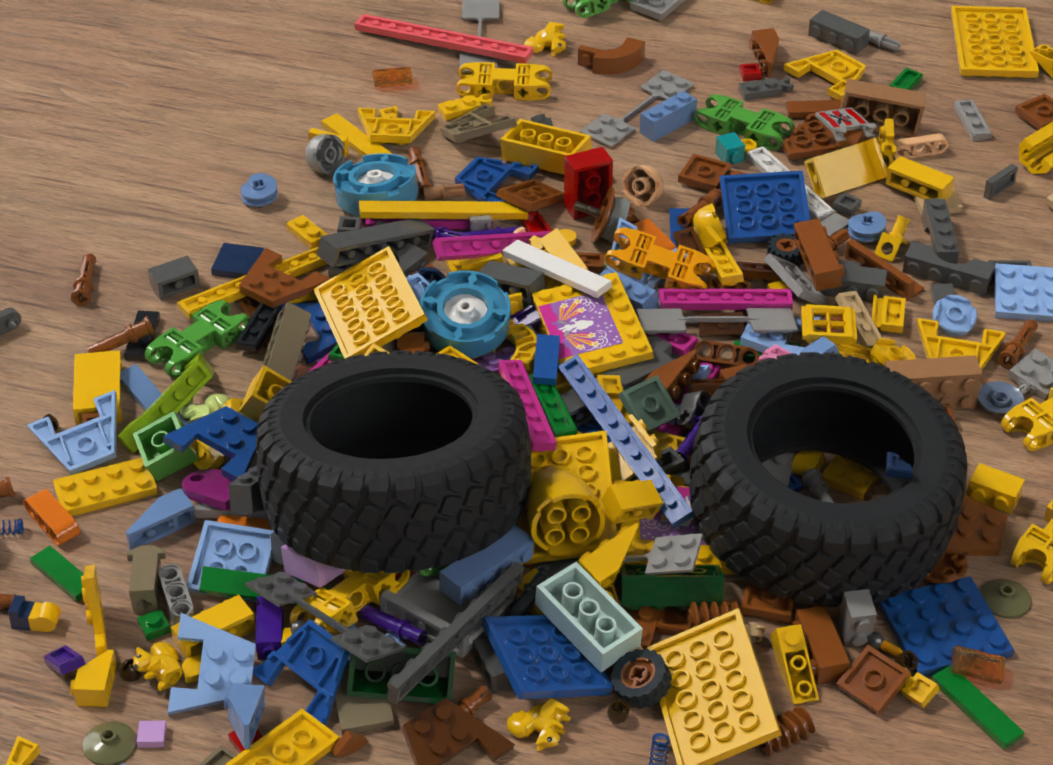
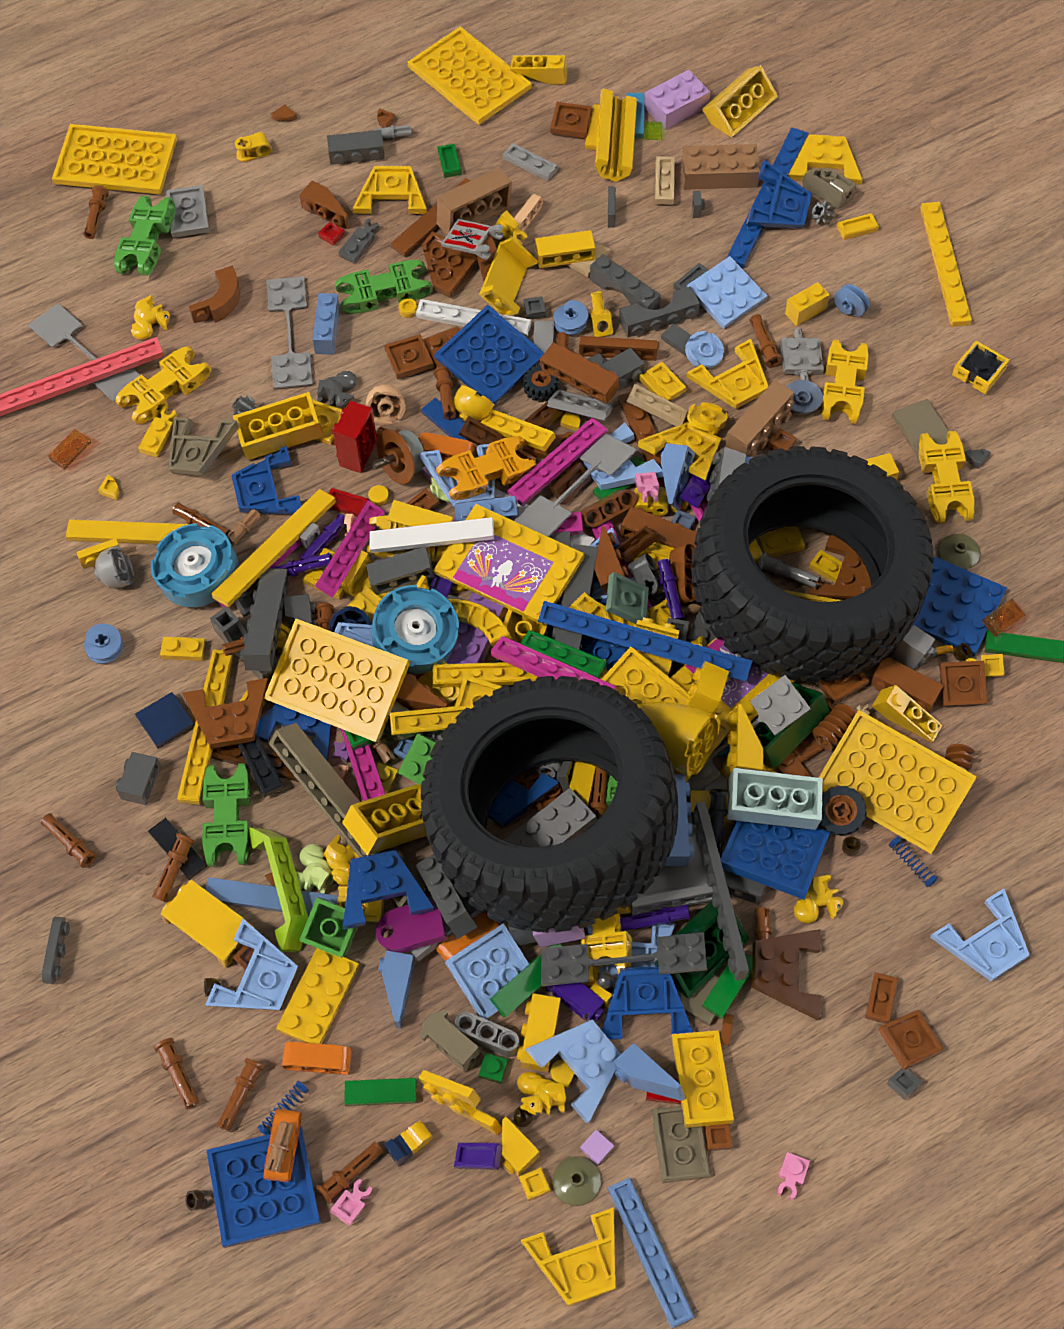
camera: 45 degrees left, 20 degrees up
(79, 717) = (534, 1184): none -> yellow tile
(386, 715) = (725, 991): none -> green tile
(394, 130) = (133, 501): yellow wing -> none
(531, 195) = (315, 478): dark orange tile -> none
(546, 359) = (520, 620): blue tile -> none
(624, 155) = (333, 388): none -> dark grey animal
(709, 237) = (488, 416): yellow tile -> none
(730, 148) = (403, 320): teal brick -> none
(848, 323) = (664, 417): yellow piece -> none
(890, 30) = (385, 118): none -> dark orange tile
(897, 467) = (878, 528): dark blue tile -> none

